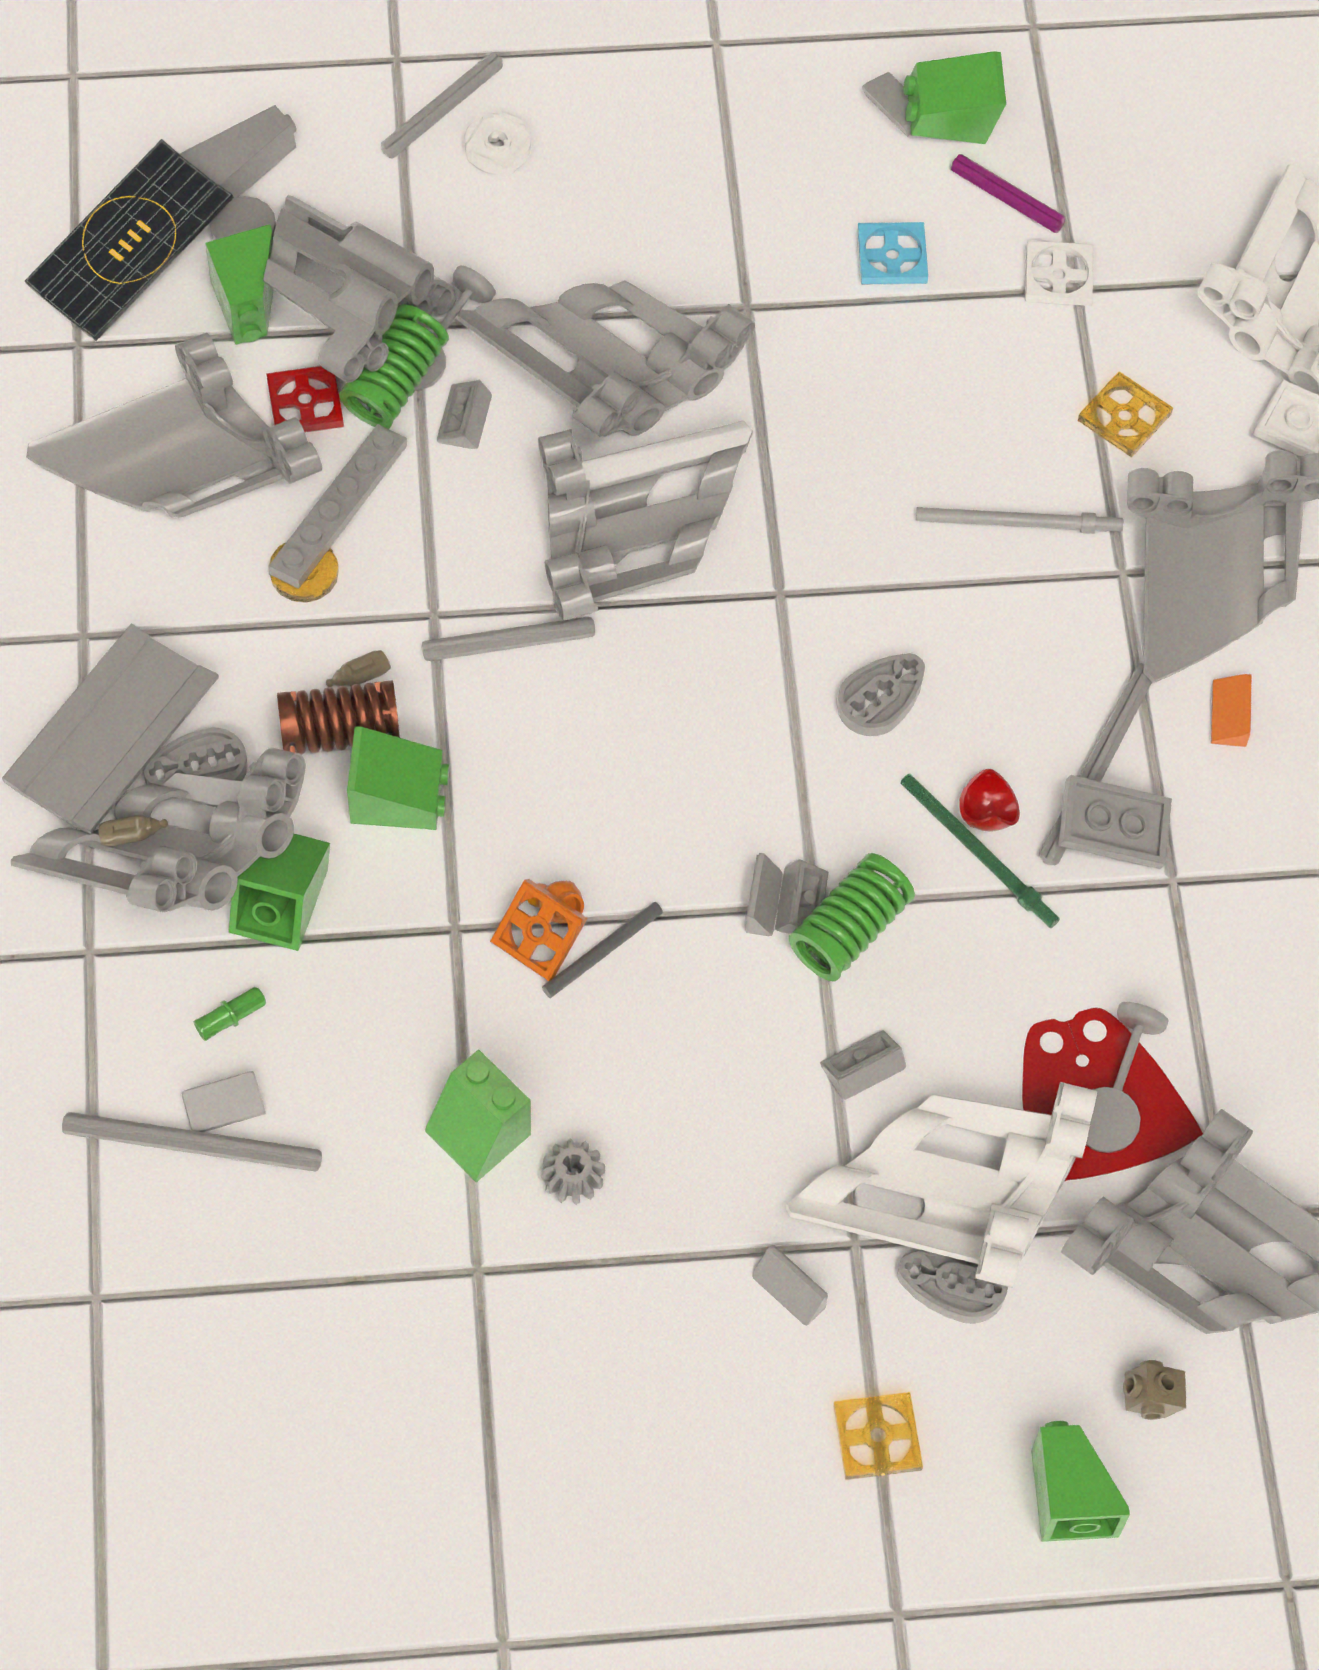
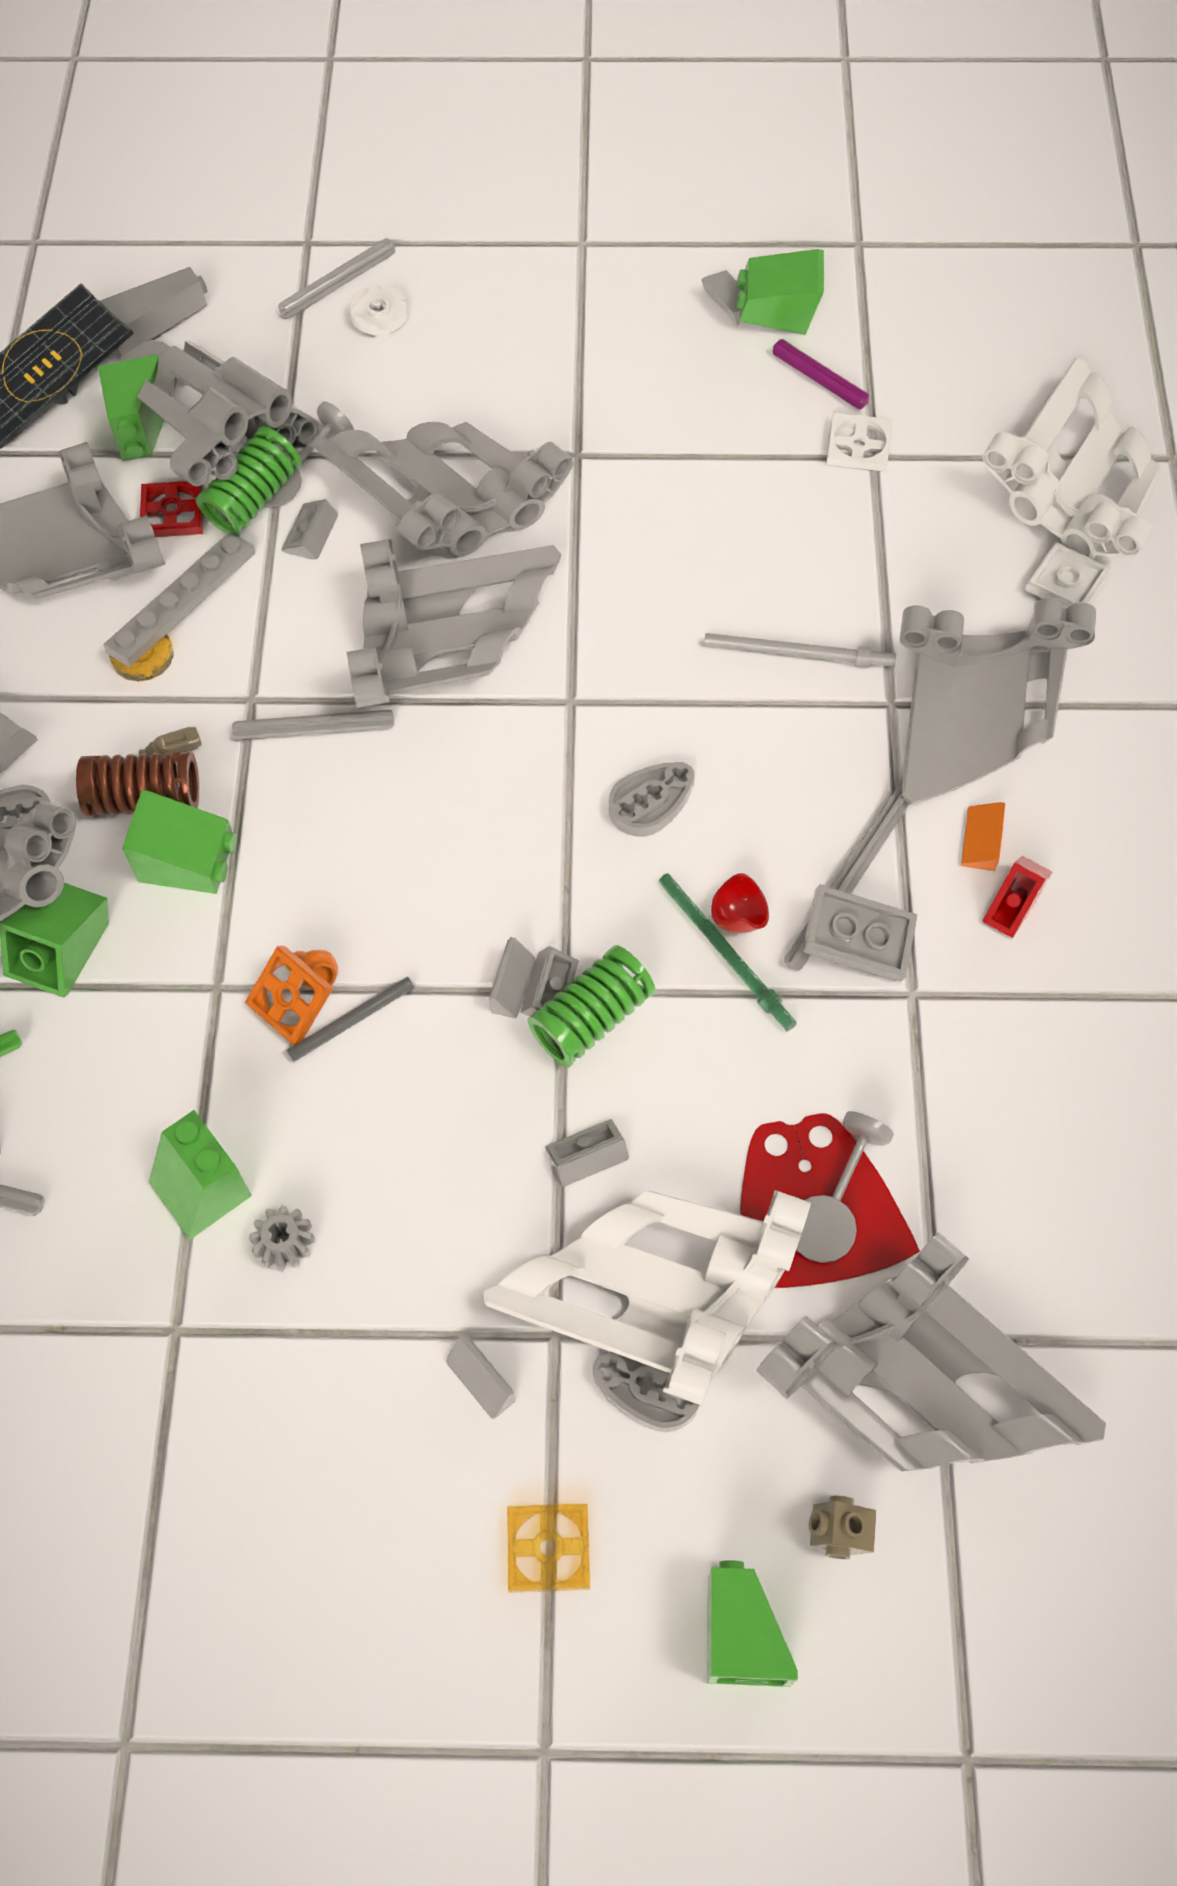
camera: 10 degrees right, 0 degrees up
(891, 231) = (712, 400): medium azure piece -> none
(1110, 432) = (924, 550): clear yellow piece -> none
(1271, 771) = (1017, 896): none -> red slope

